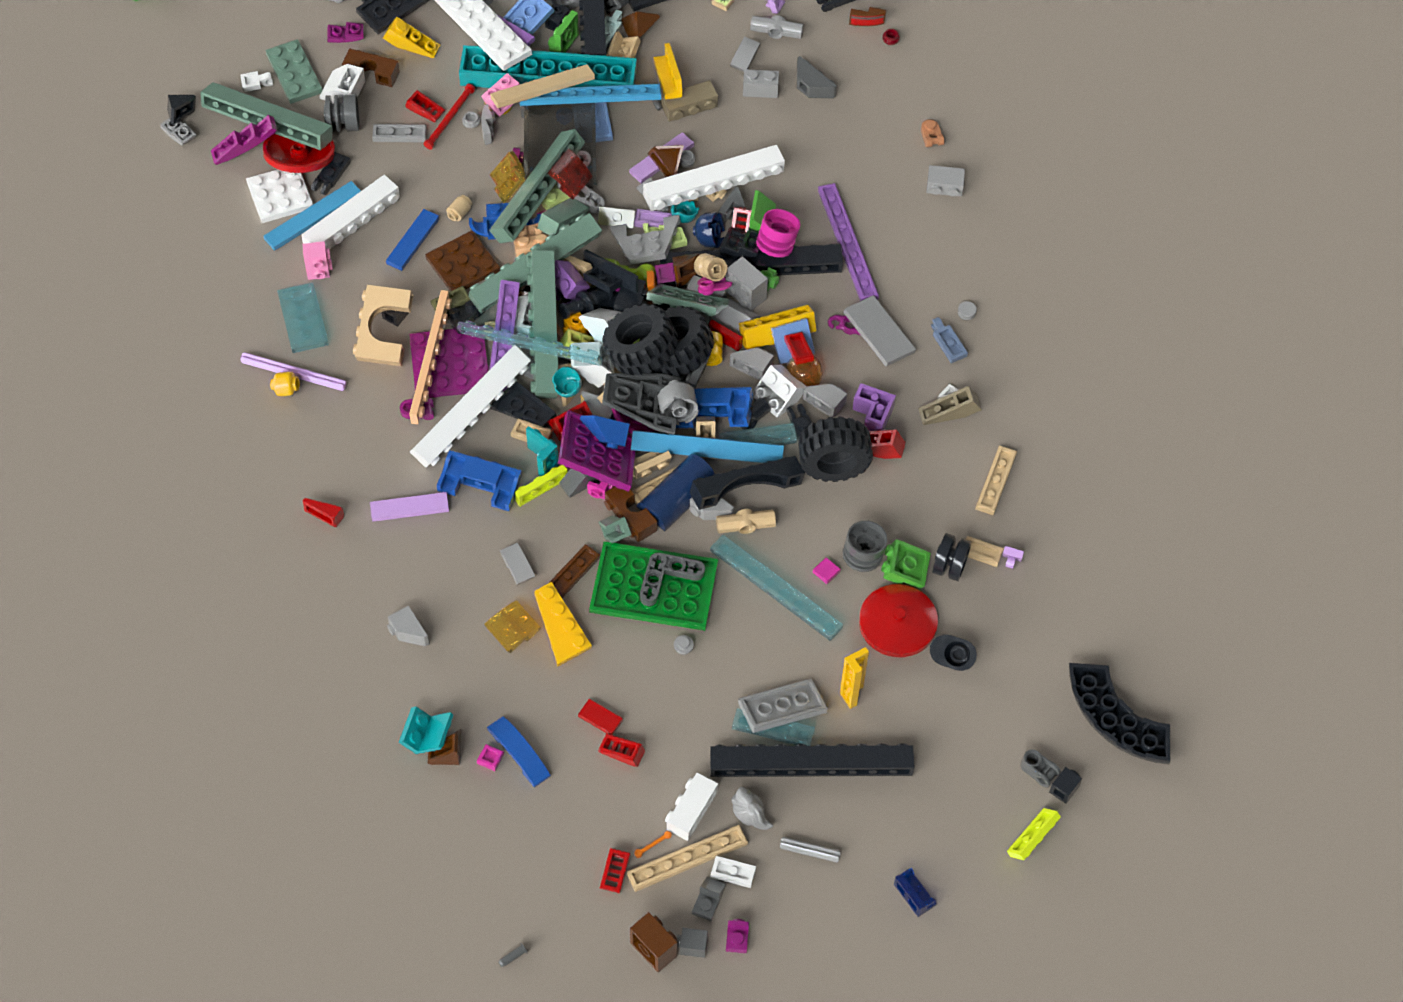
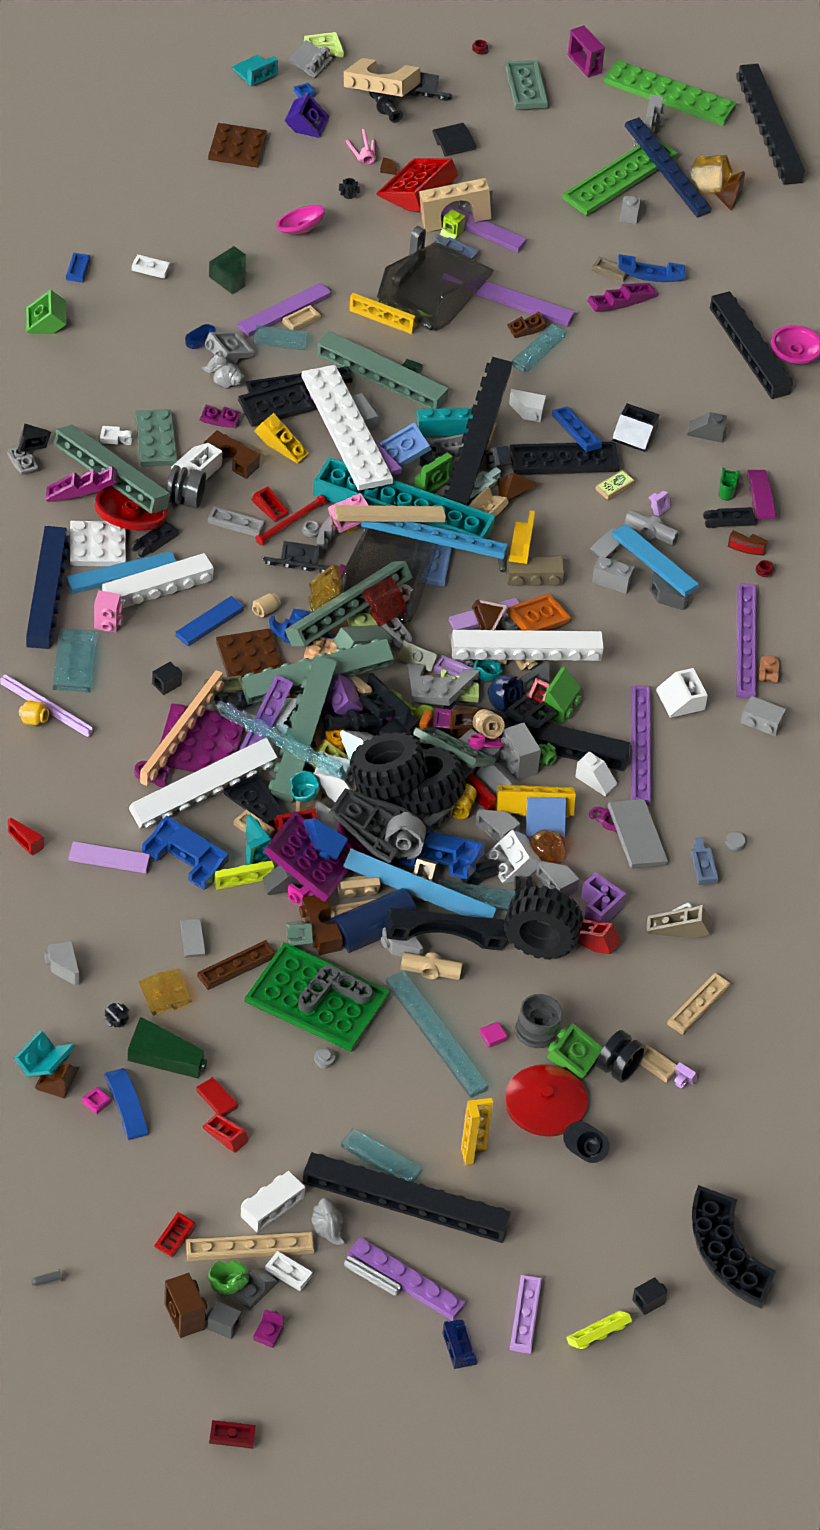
camera: 15 degrees right, 10 degrees down
(249, 252) = (47, 586): none -> dark blue brick
(377, 300) = (148, 662): tan arch -> none
(471, 150) = (299, 555): none -> black bracket
(477, 665) = (116, 1015): none -> black gear
(535, 687) = (164, 1050): none -> dark green slope
(562, 629) = (212, 1008): yellow wing -> none
(639, 852) = (205, 1227): orange hinge -> none
(682, 898) = (228, 1277): none -> bright green hair
(710, 143) = (538, 614): none -> orange plate
(778, 233) = (568, 711): dark pink wheel -> none
(782, 705) = (398, 1139): light grey tile -> none
(795, 58) = (655, 560): none -> dark azure tile
(799, 348) = (547, 823): red tile -> none
(820, 284) = (595, 774): none -> white slope
(845, 842) = (410, 1280): none -> medium lavender plate
(867, 181) = (682, 693): none -> white slope
(901, 112) = (746, 641): none -> medium lavender tile
(961, 840) = (525, 1314): none -> lavender tile
(1041, 770) = (632, 1274): dark grey piece -> none

